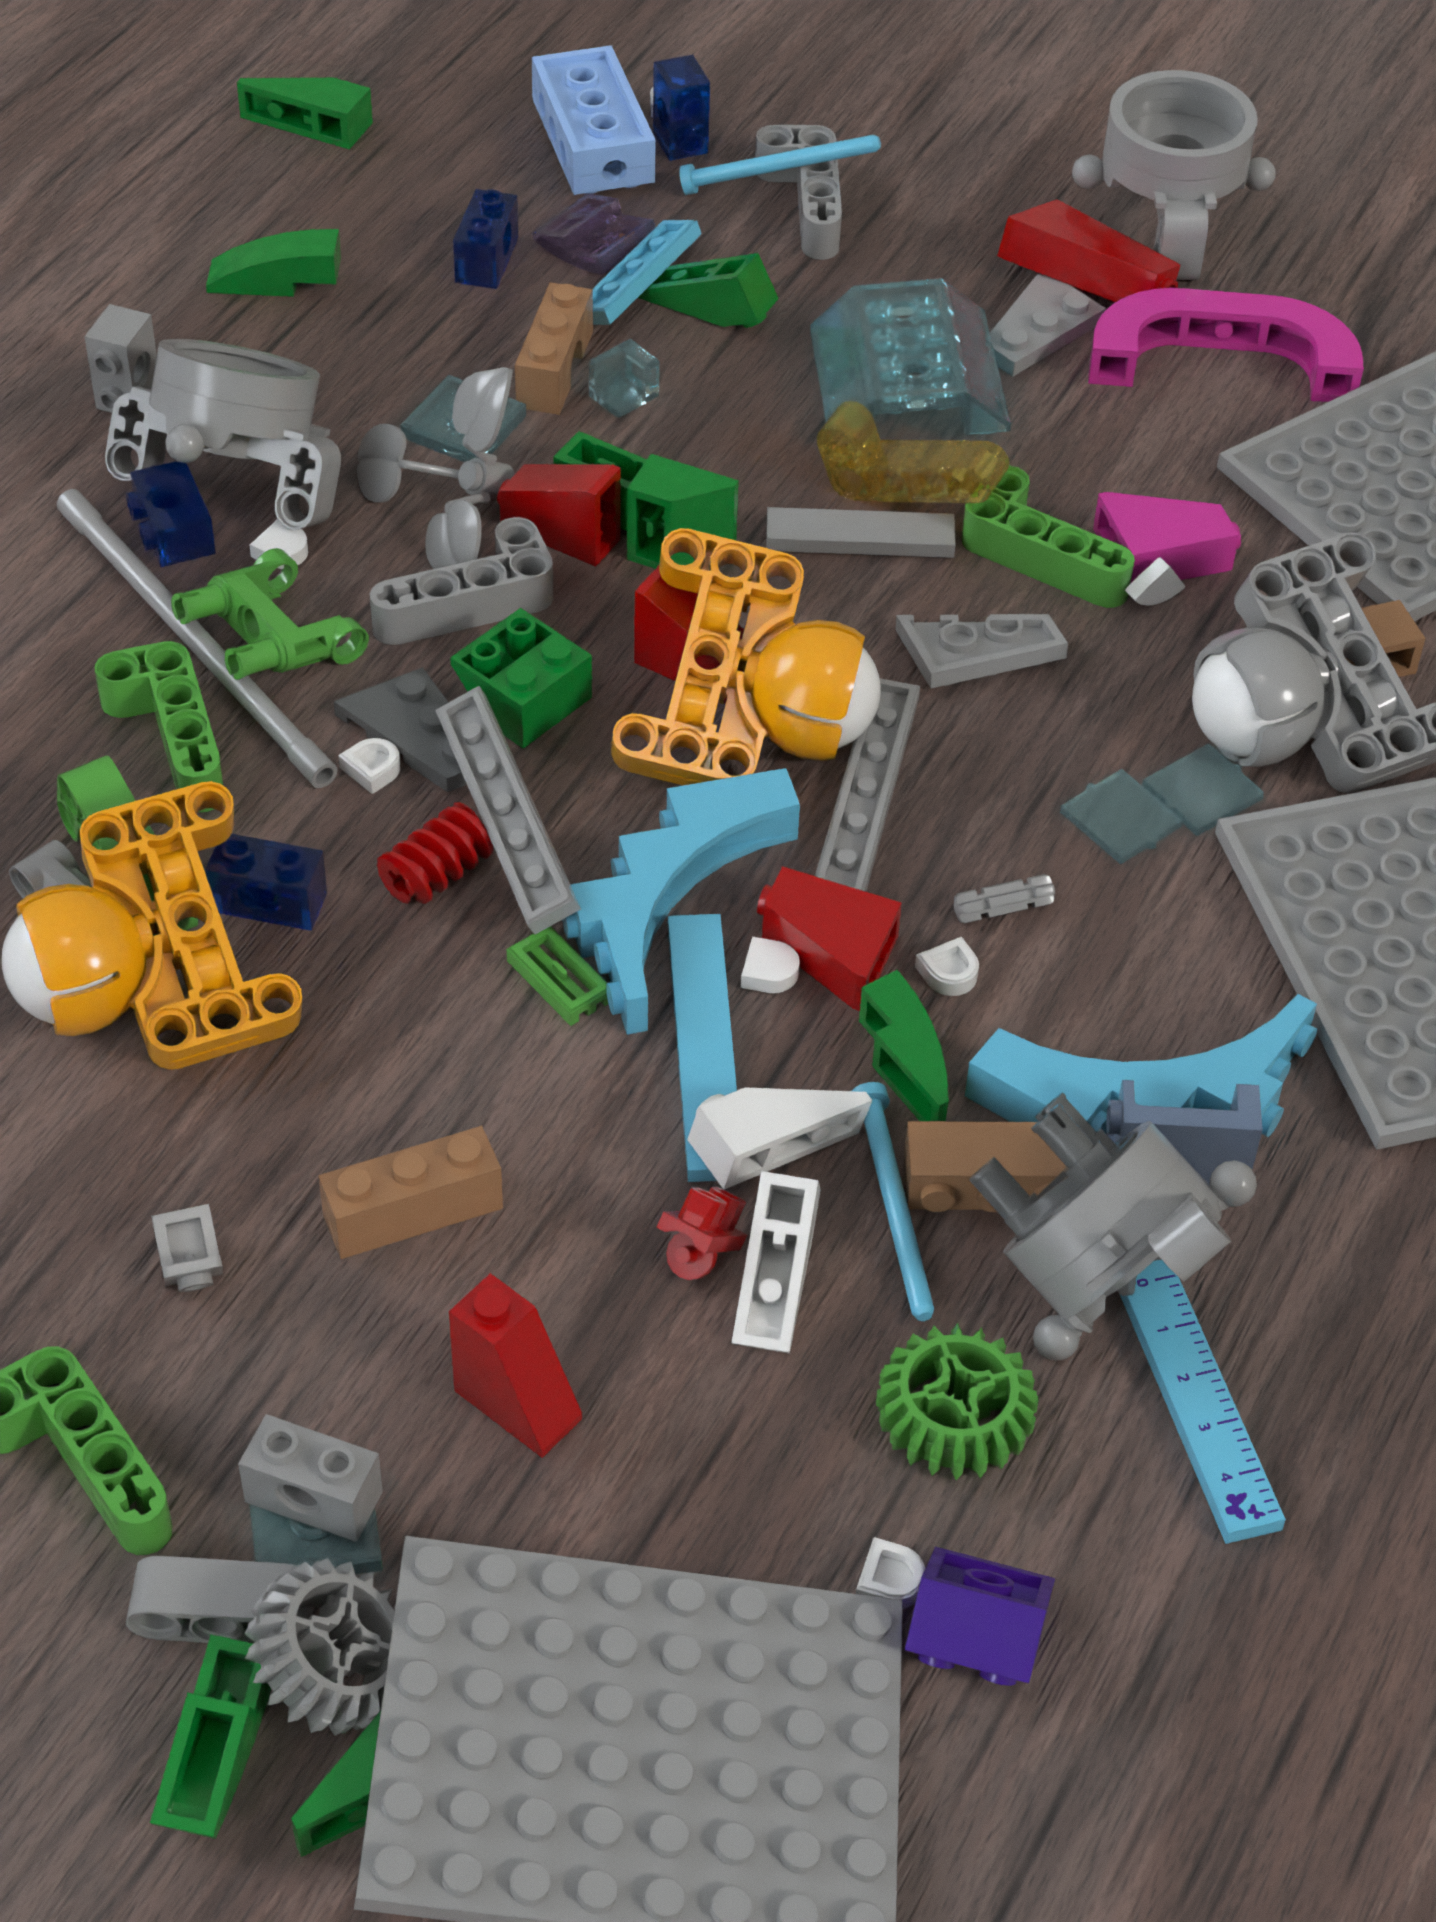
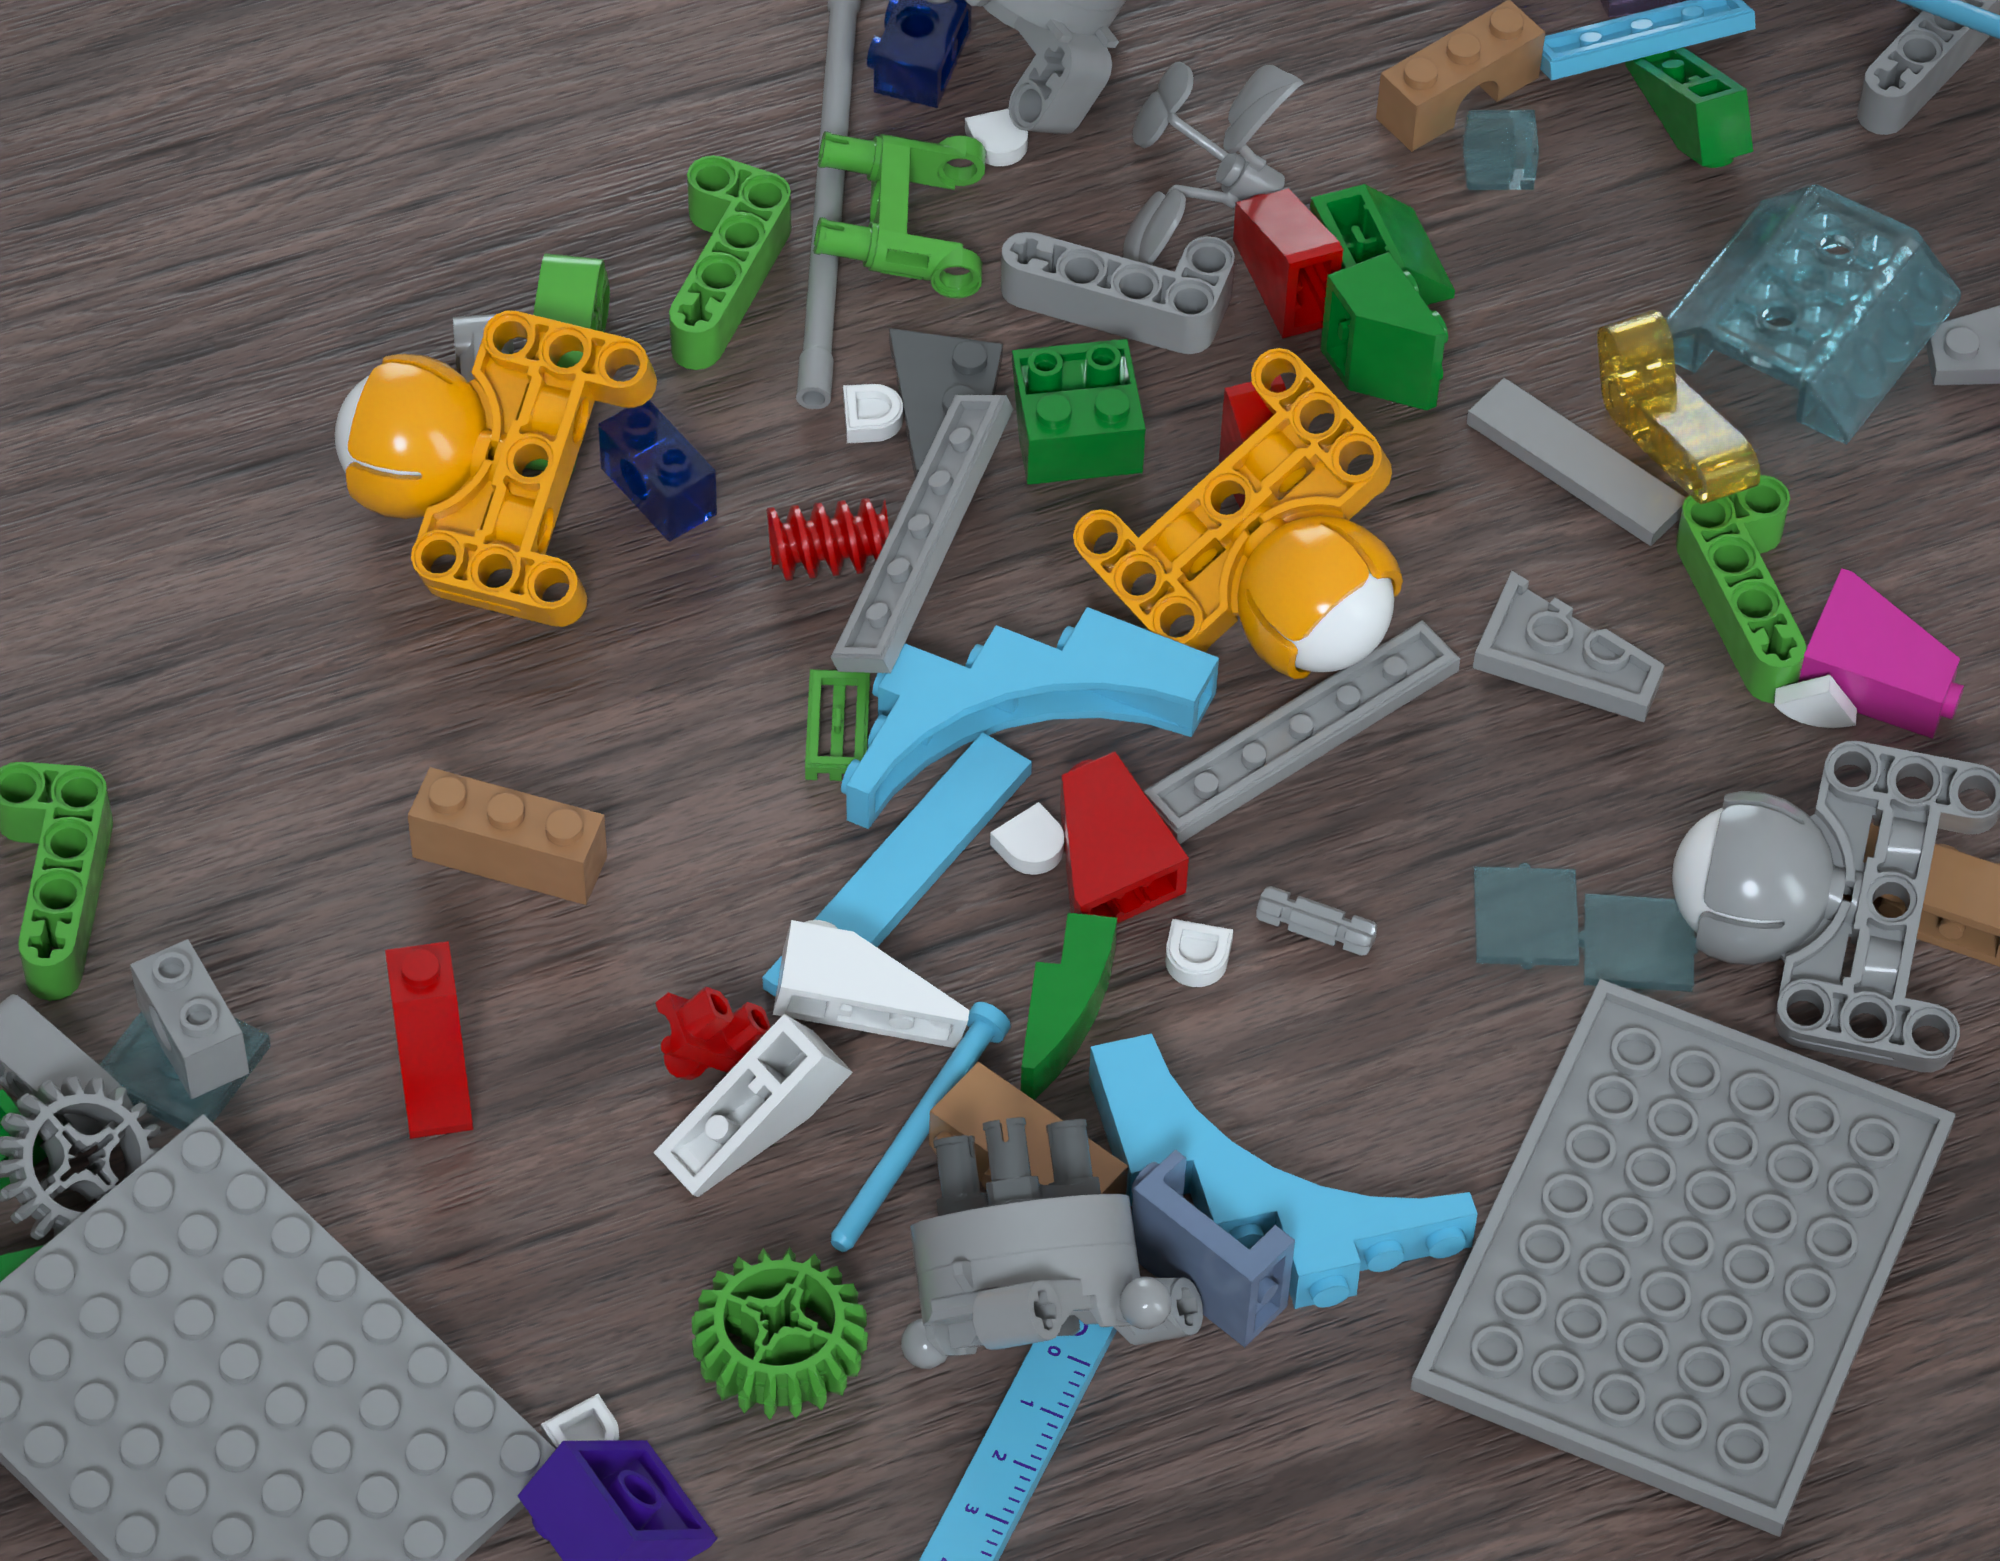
camera: 40 degrees right, 5 degrees up
(187, 1248) = (288, 761): light grey bracket -> none
(433, 424) = (1319, 112): clear light blue tile -> none

